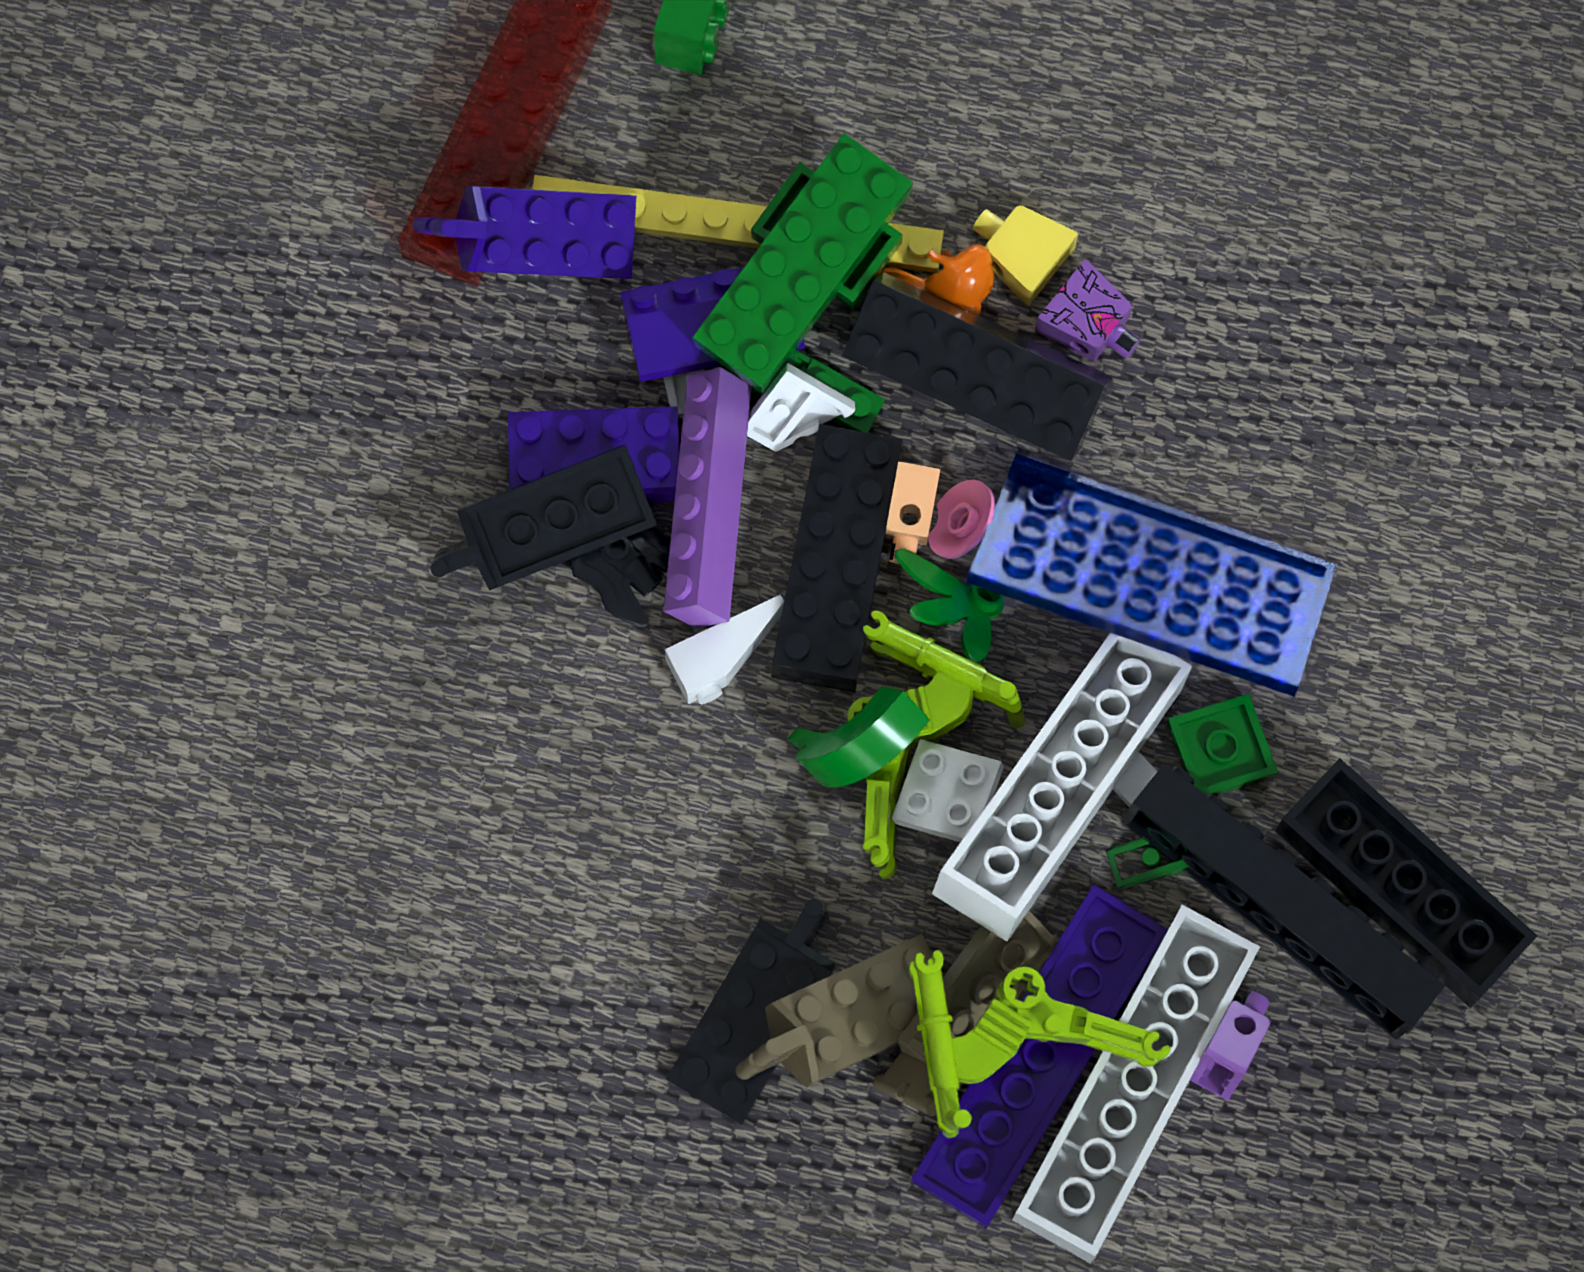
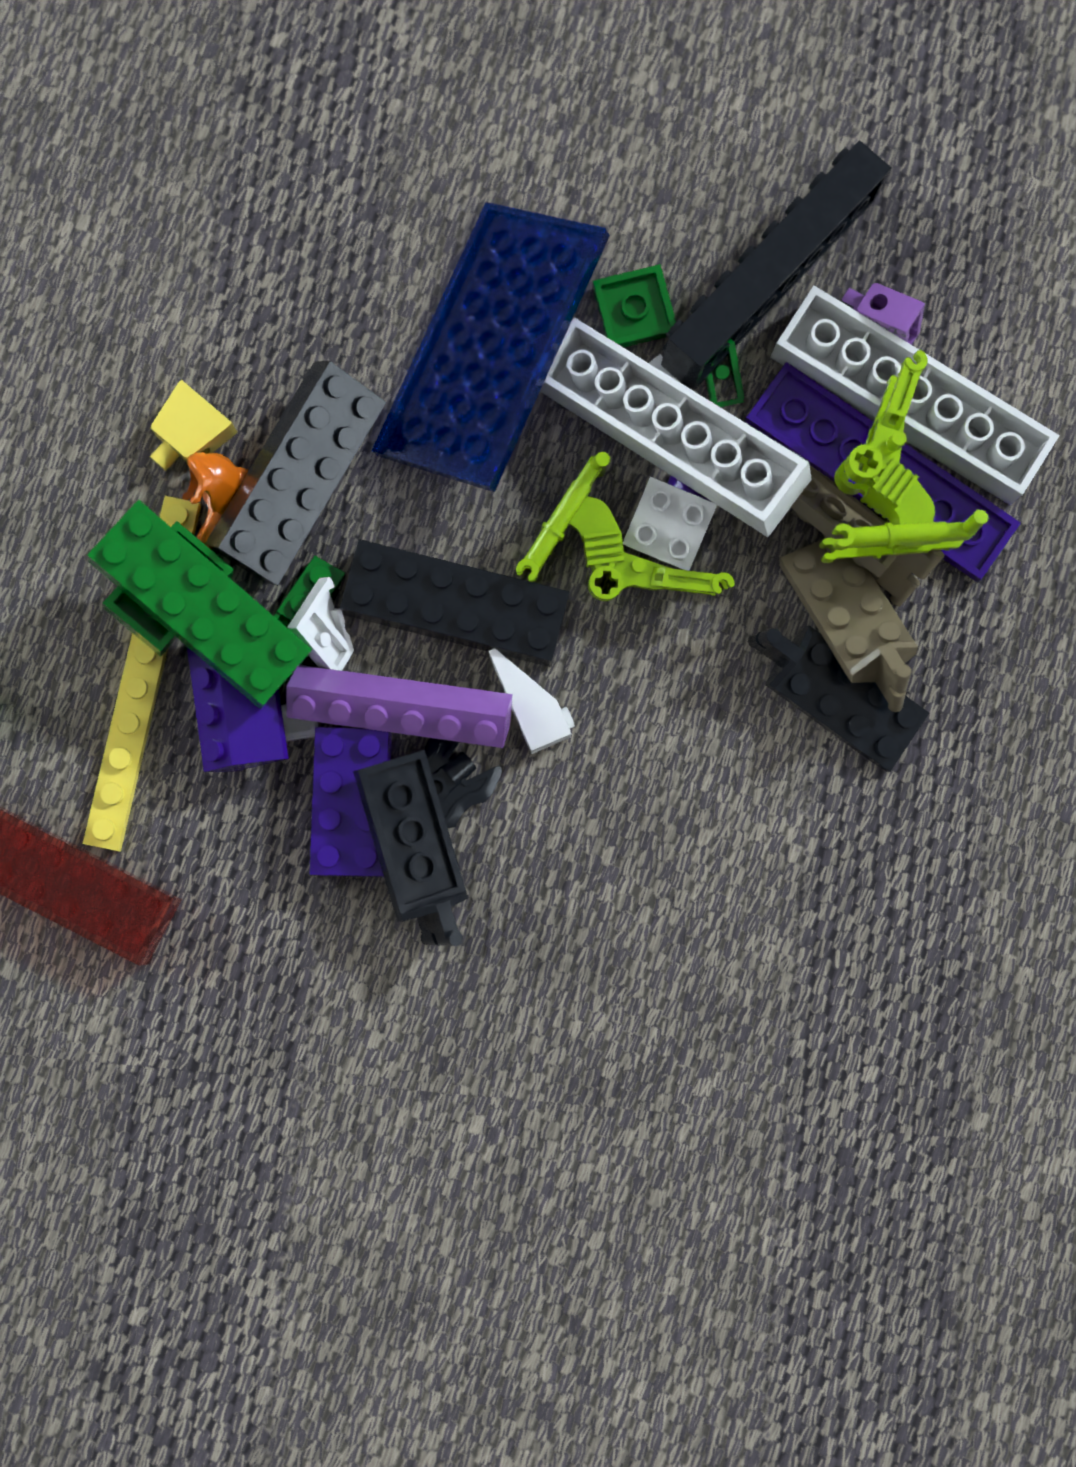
camera: 85 degrees left, 10 degrees up
(540, 232) = (144, 840): dark purple hinge -> none
(863, 743) = (636, 584): green arch -> none
(914, 494) = (407, 528): light nougat torso -> none
(962, 519) = (419, 504): bright pink dish -> none
(962, 603) = (505, 503): green plant -> none
(1088, 316) = (253, 379): medium lavender torso -> none
(1405, 882) = (758, 172): black brick -> none

